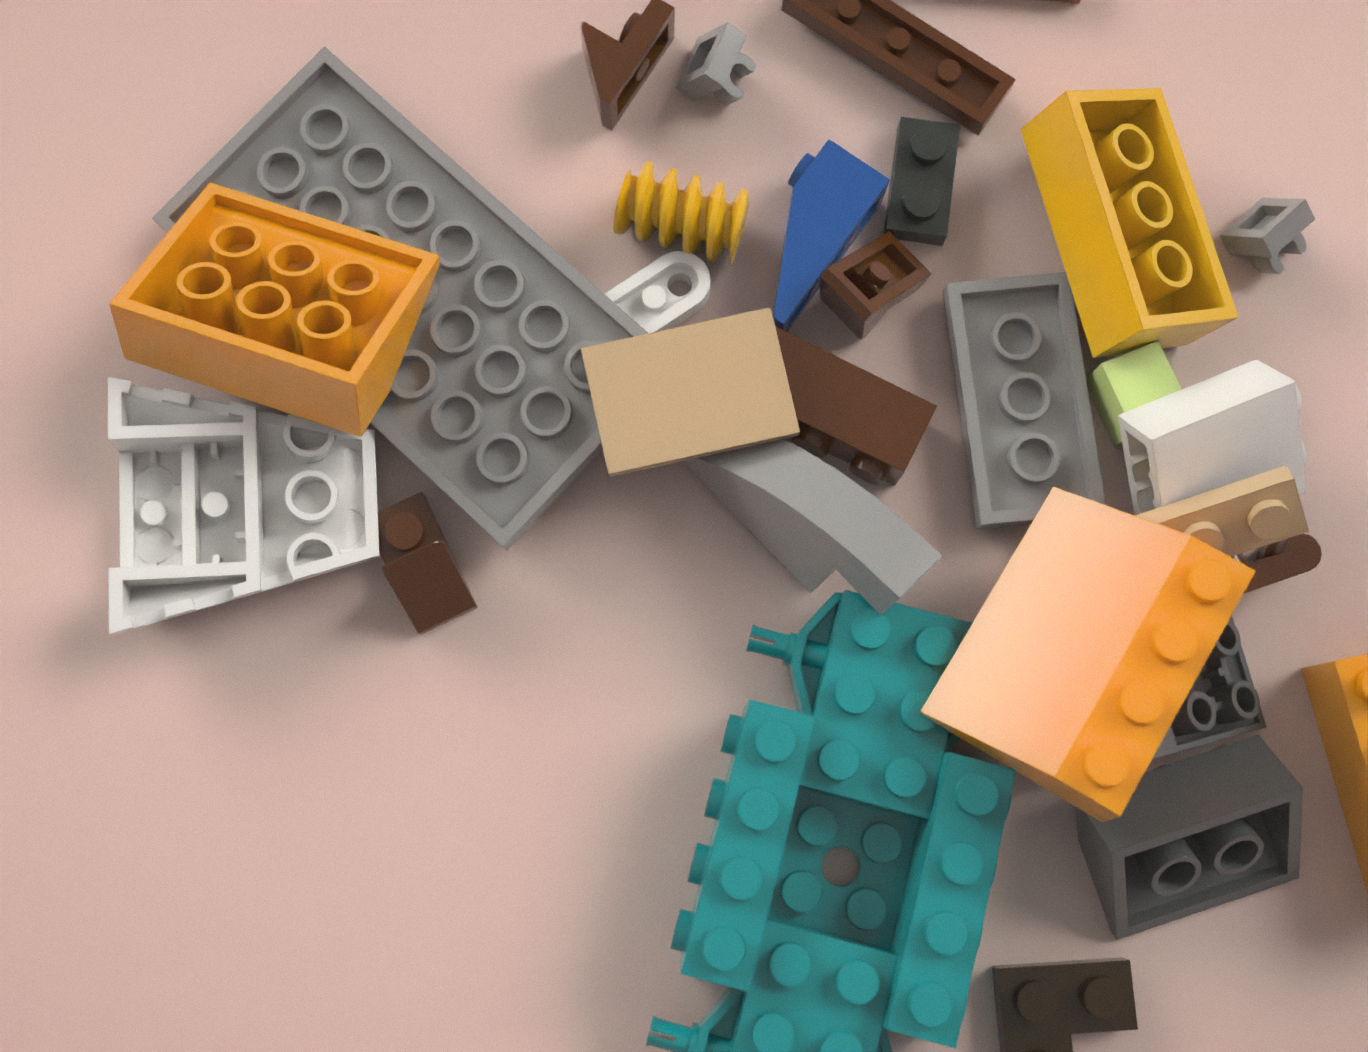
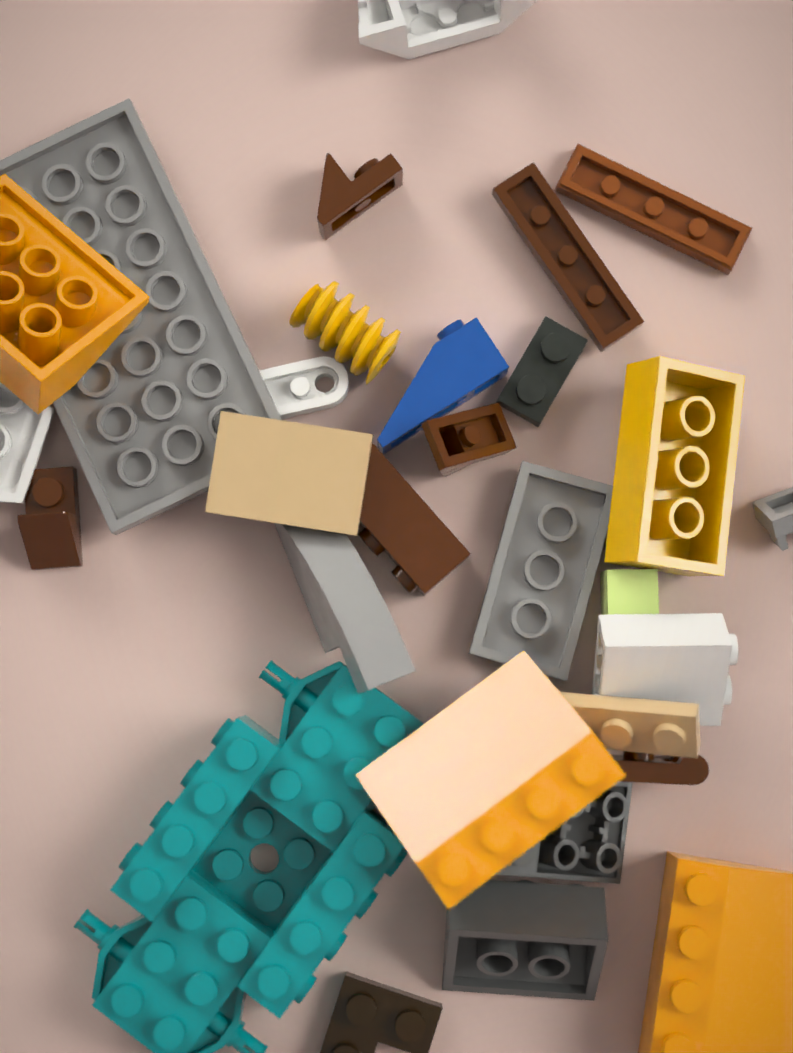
camera: 25 degrees right, 5 degrees up
(712, 62) = (417, 219): light grey tile -> none

